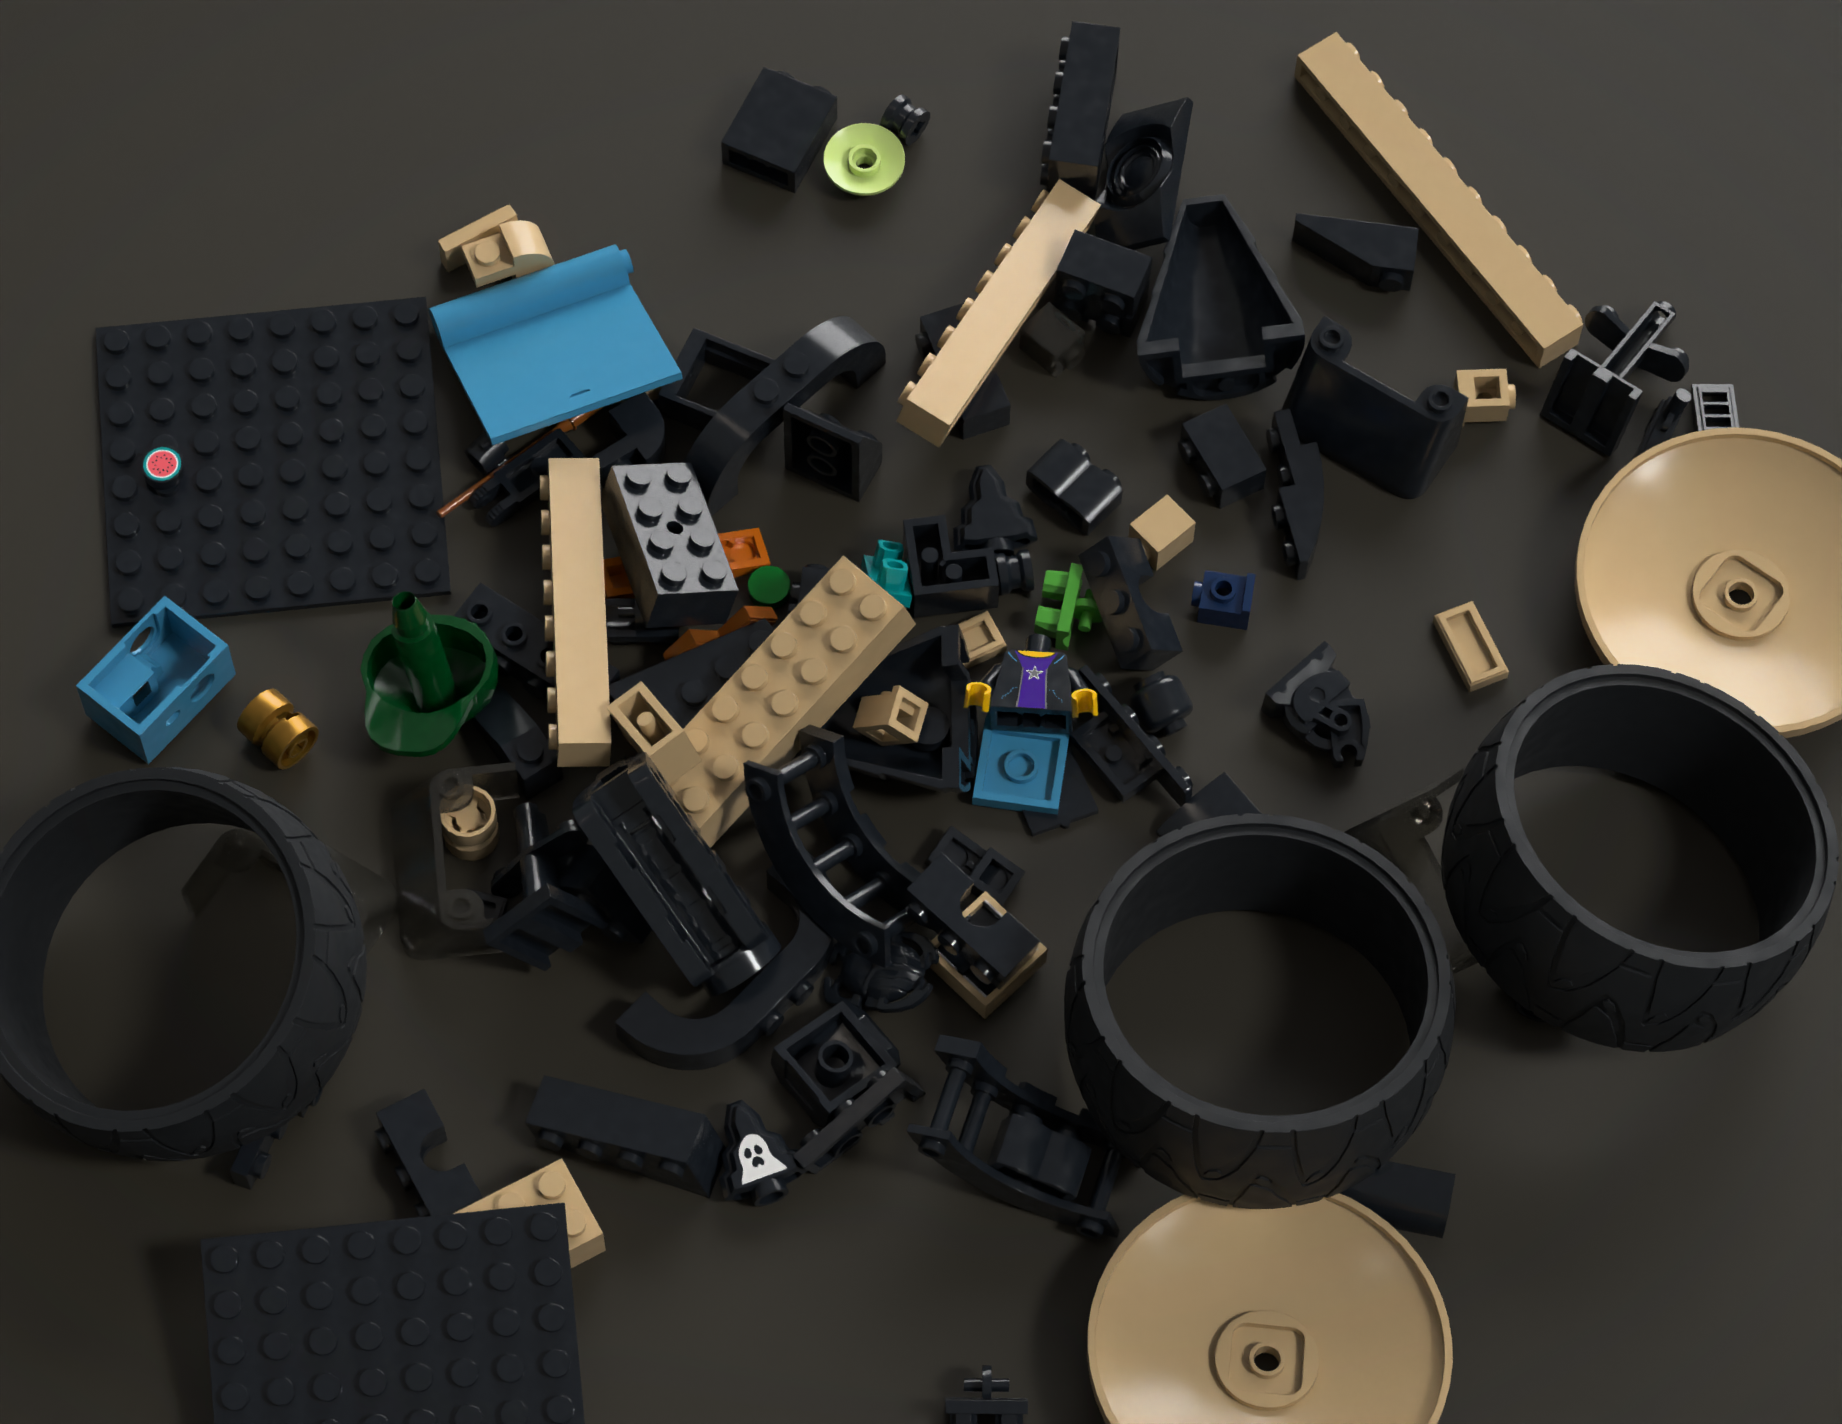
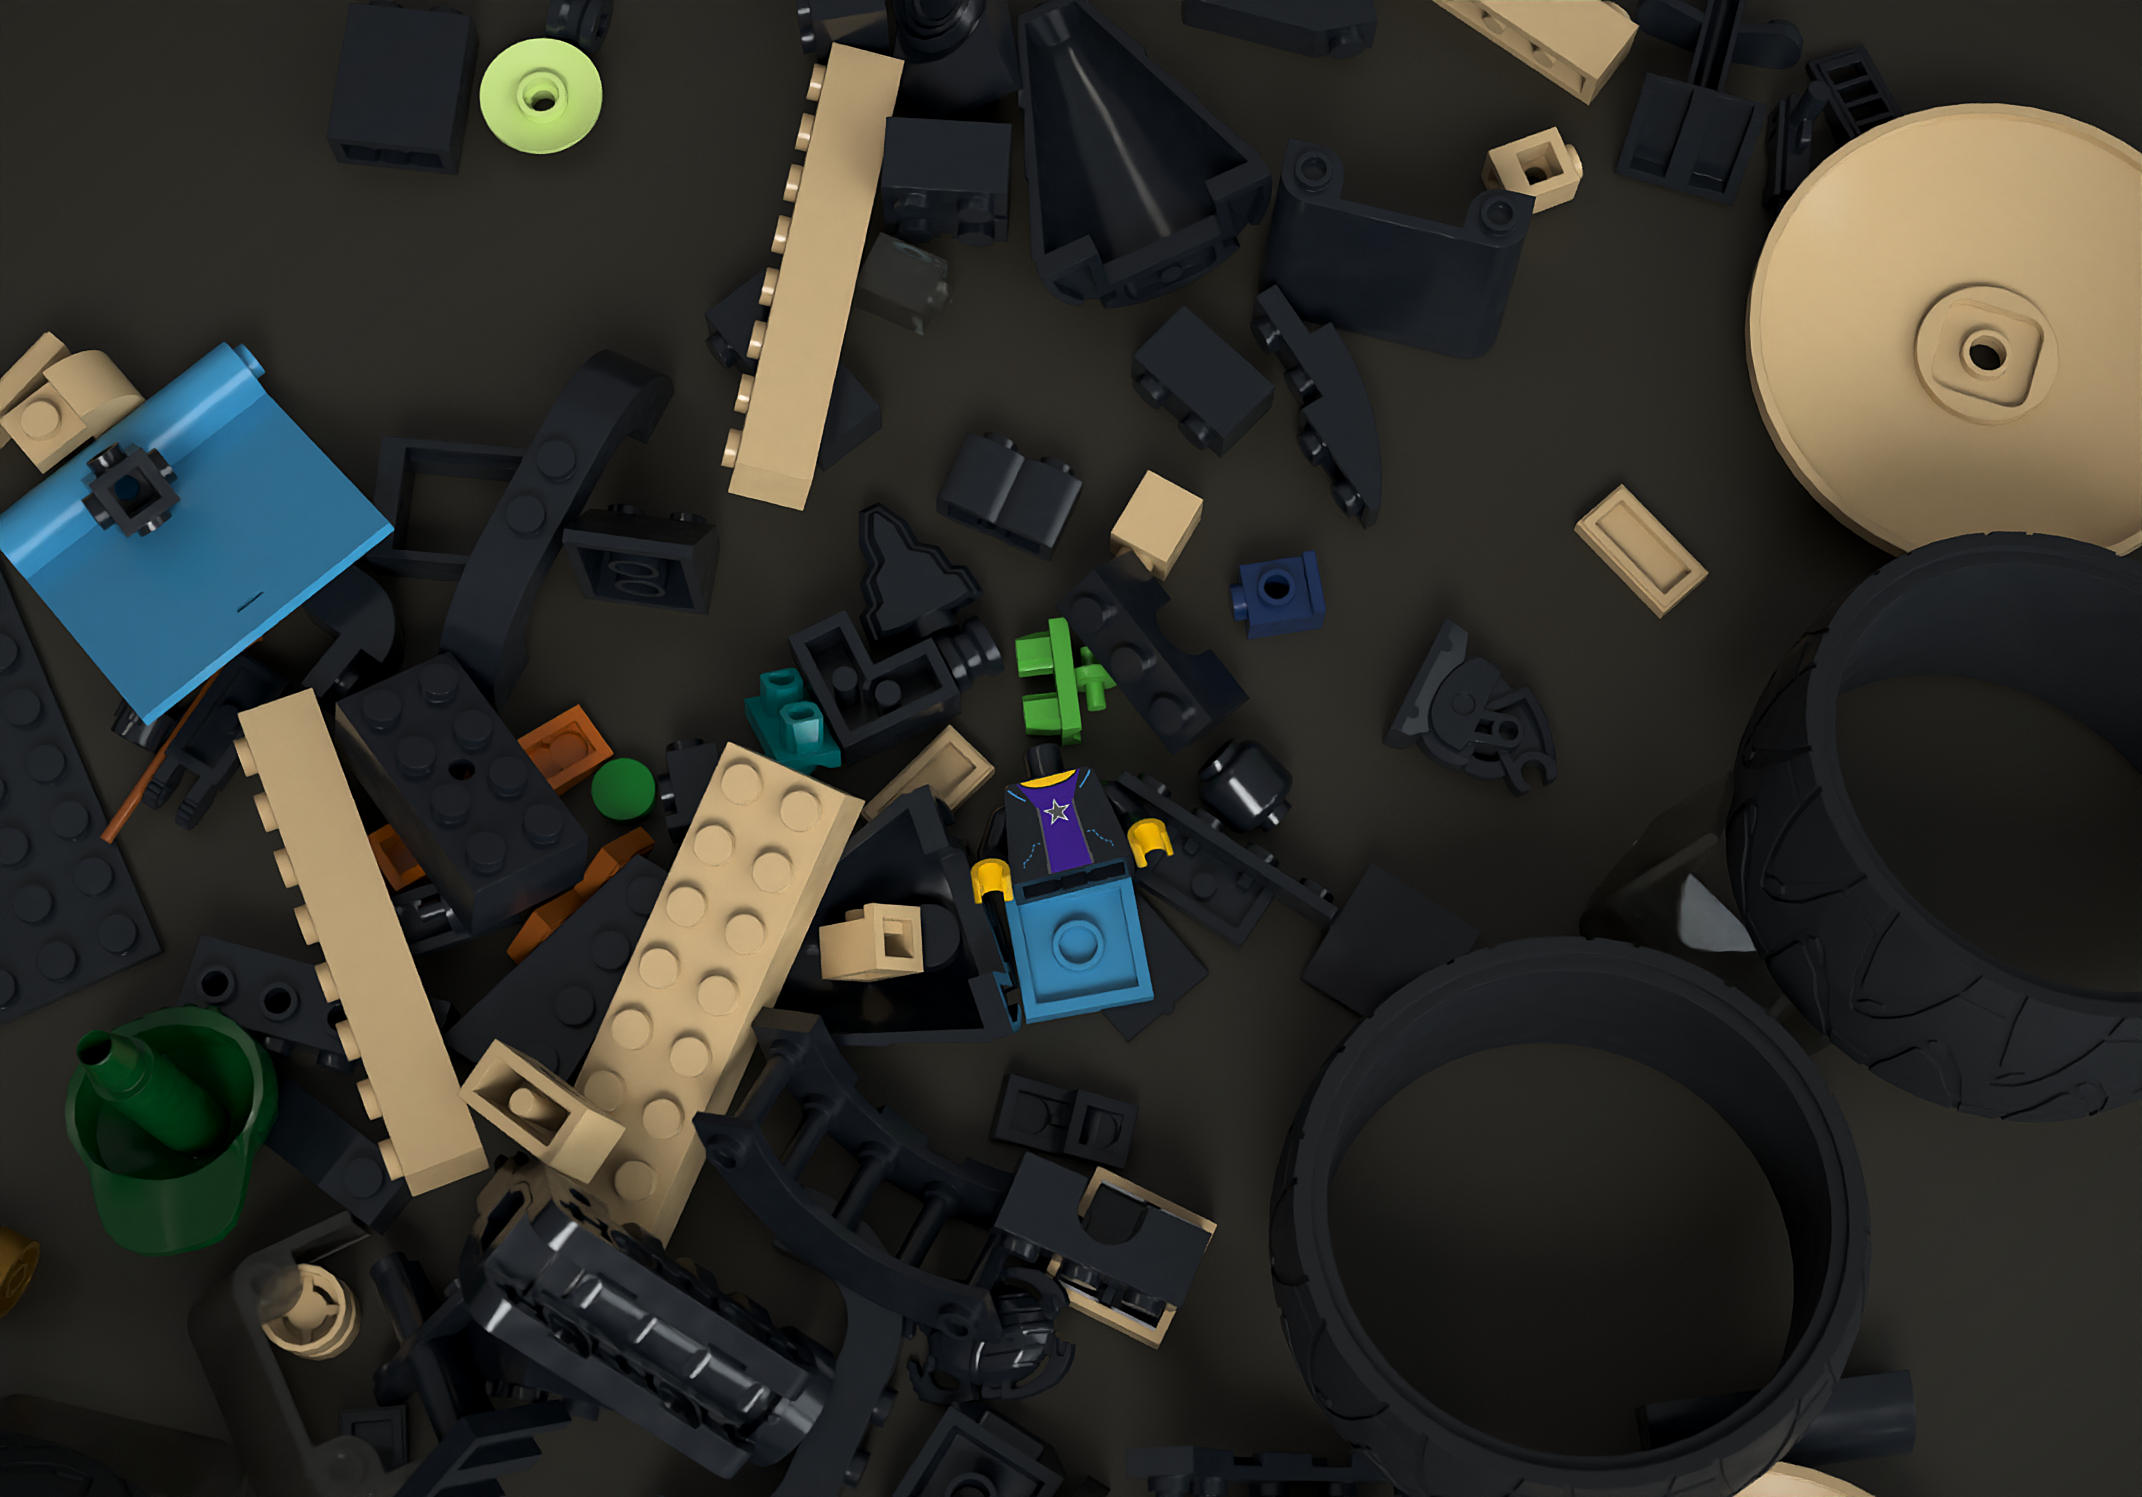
camera: 20 degrees left, 10 degrees up
(543, 305) = (153, 496): none -> black brick

